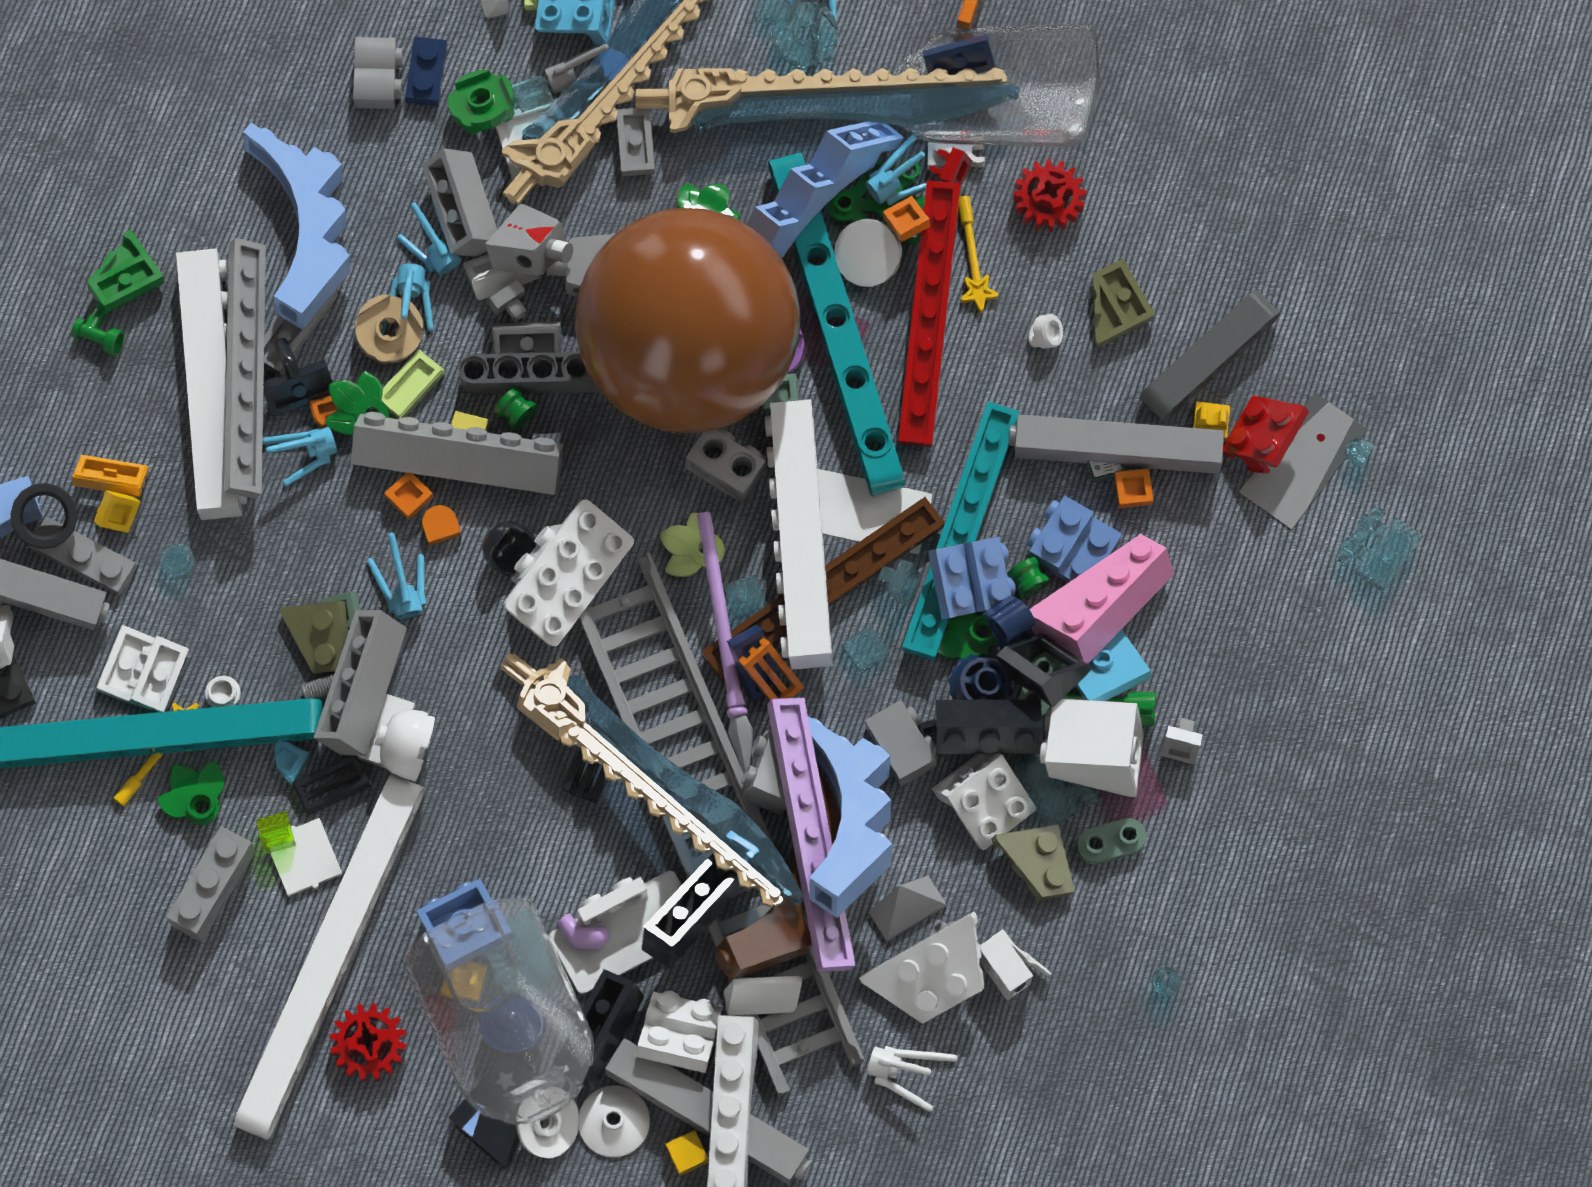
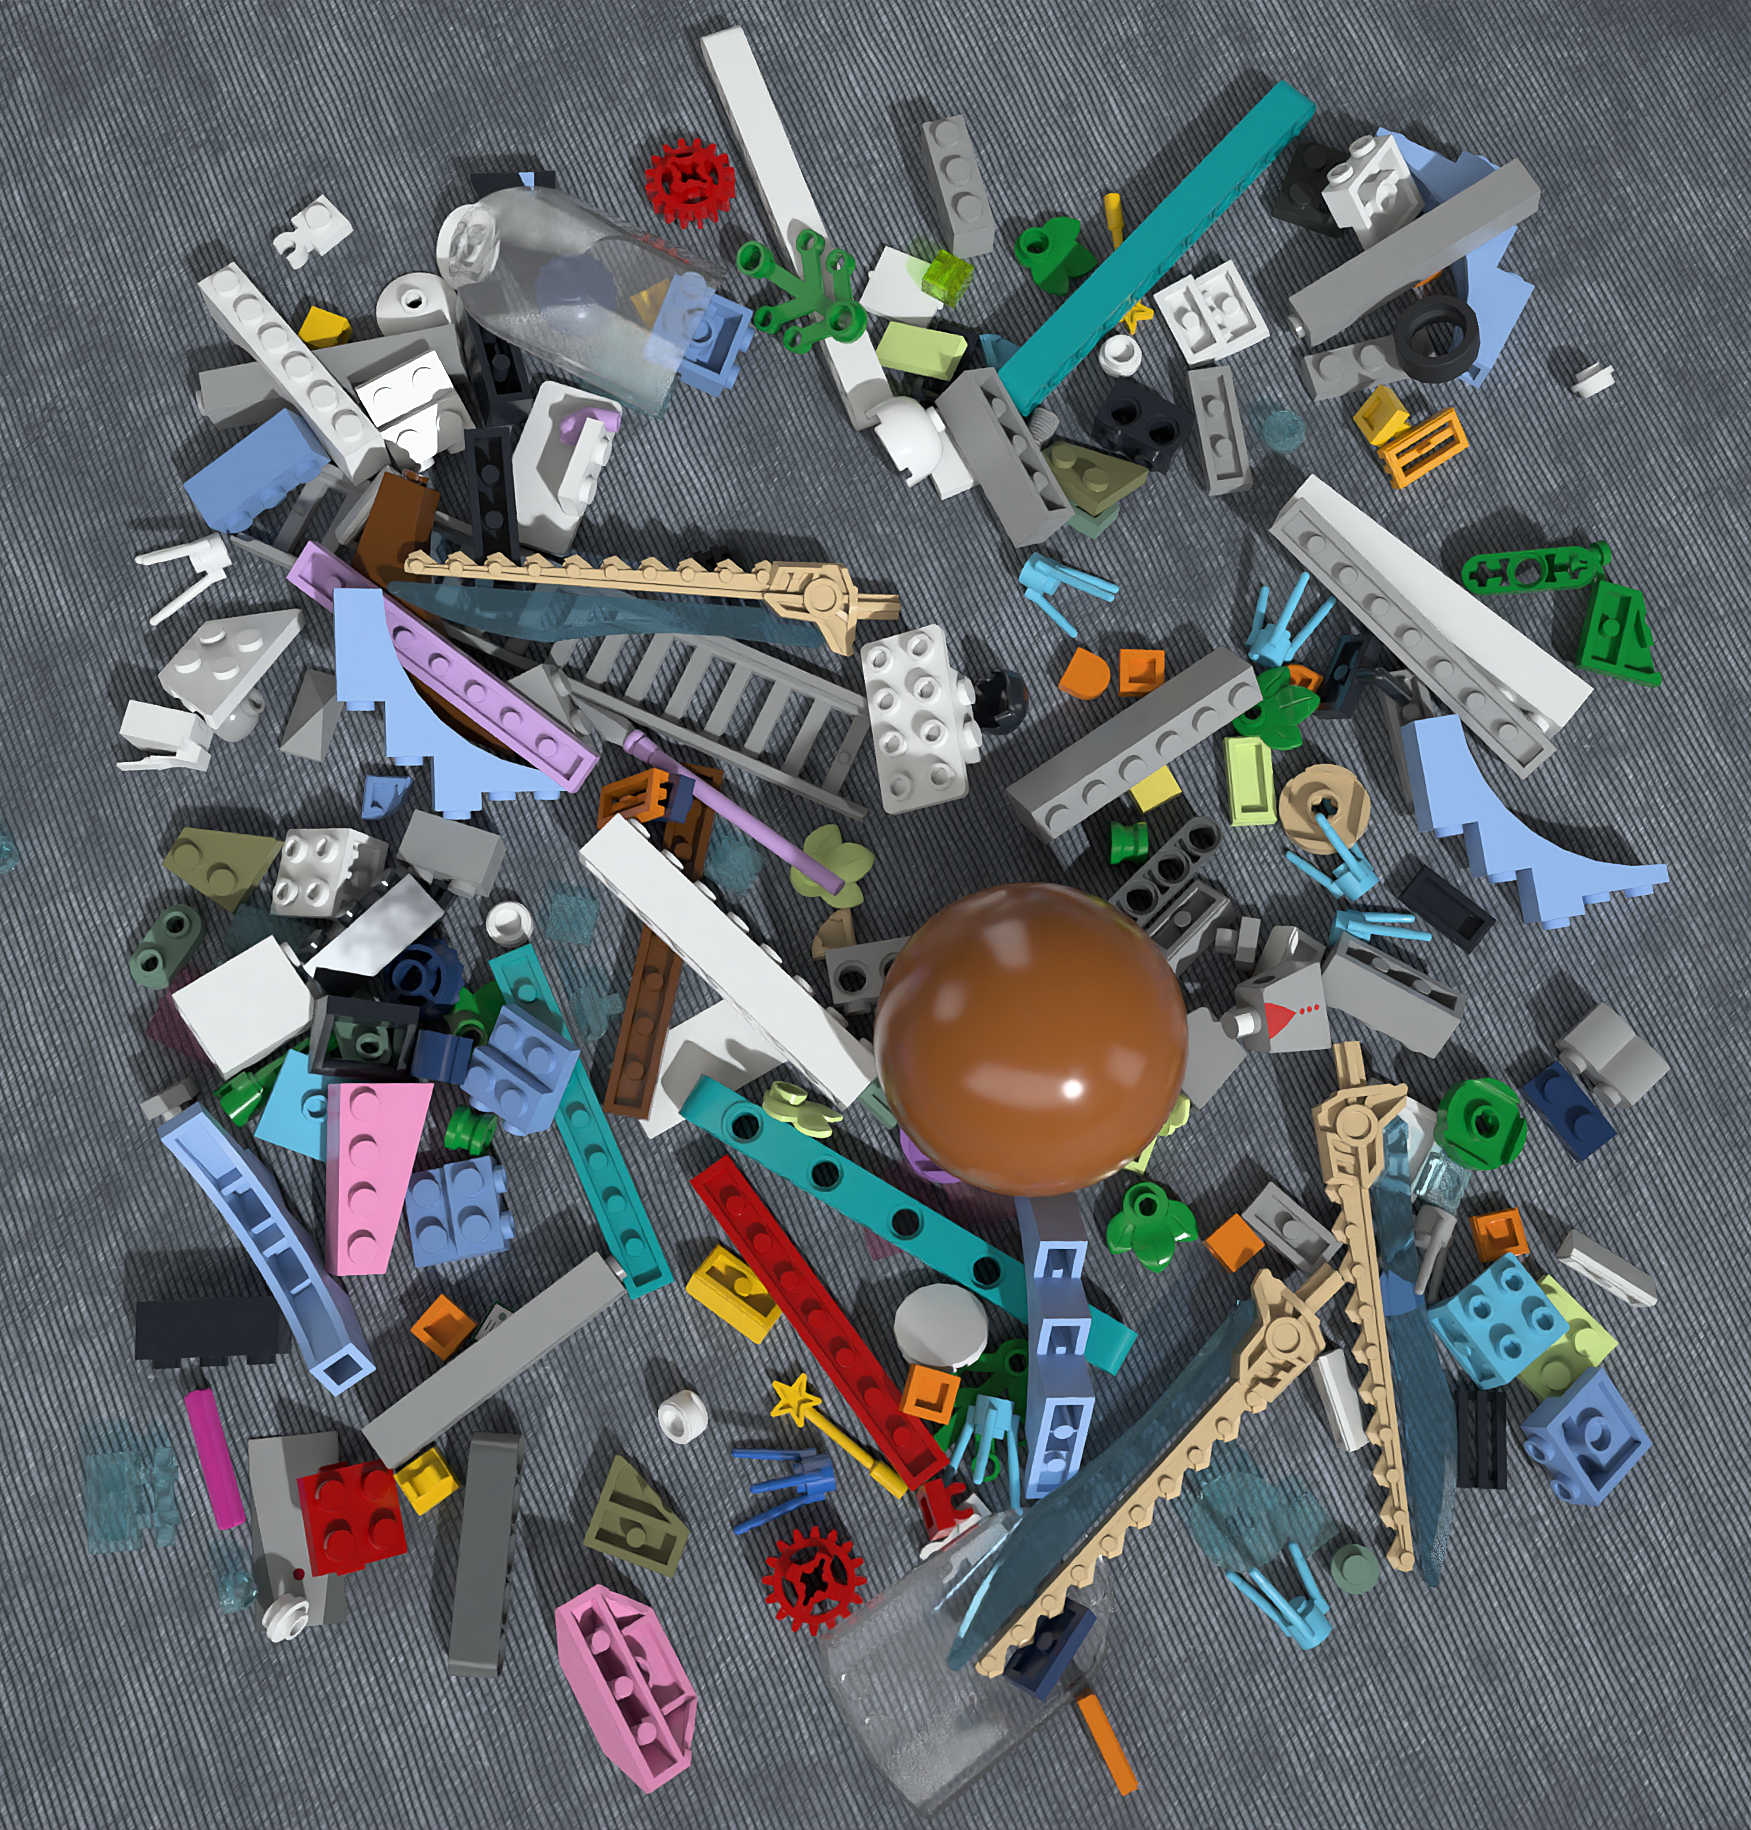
camera: 140 degrees right, 5 degrees up
(121, 348) = (1563, 580): none -> green beam
(214, 593) = (1219, 430): none -> light grey plate
(252, 636) = (1148, 417): none -> black brick
(339, 800) = (920, 350): none -> yellowish green tile
(374, 888) = (808, 294): none -> green plant
(378, 222) = (1446, 909): none -> black tile
(528, 47) = (1498, 1234): none -> orange tile
(671, 162) = (1233, 1243): none -> orange piece
(695, 41) = (1340, 1400): none -> white slope
(727, 508) = (834, 934): none -> tan tile
(811, 1078) = (257, 473): none -> medium blue brick
(838, 425) = (789, 1104): none -> yellowish green plate
(903, 679) = (509, 924): none -> white tile
(910, 820) = (384, 795): none -> medium blue tile
(960, 371) = (734, 1294): none -> yellow slope
(1006, 244) = (811, 1476): none -> blue plant
(1189, 588) = (277, 1243): none -> light blue arch
(1192, 225) = (628, 1684): none -> bright pink wedge
(1260, 595) = (211, 1331): none -> black brick
(1316, 532) = (214, 1458): none -> dark pink axle
(1343, 414) = (286, 1617): none -> white plate

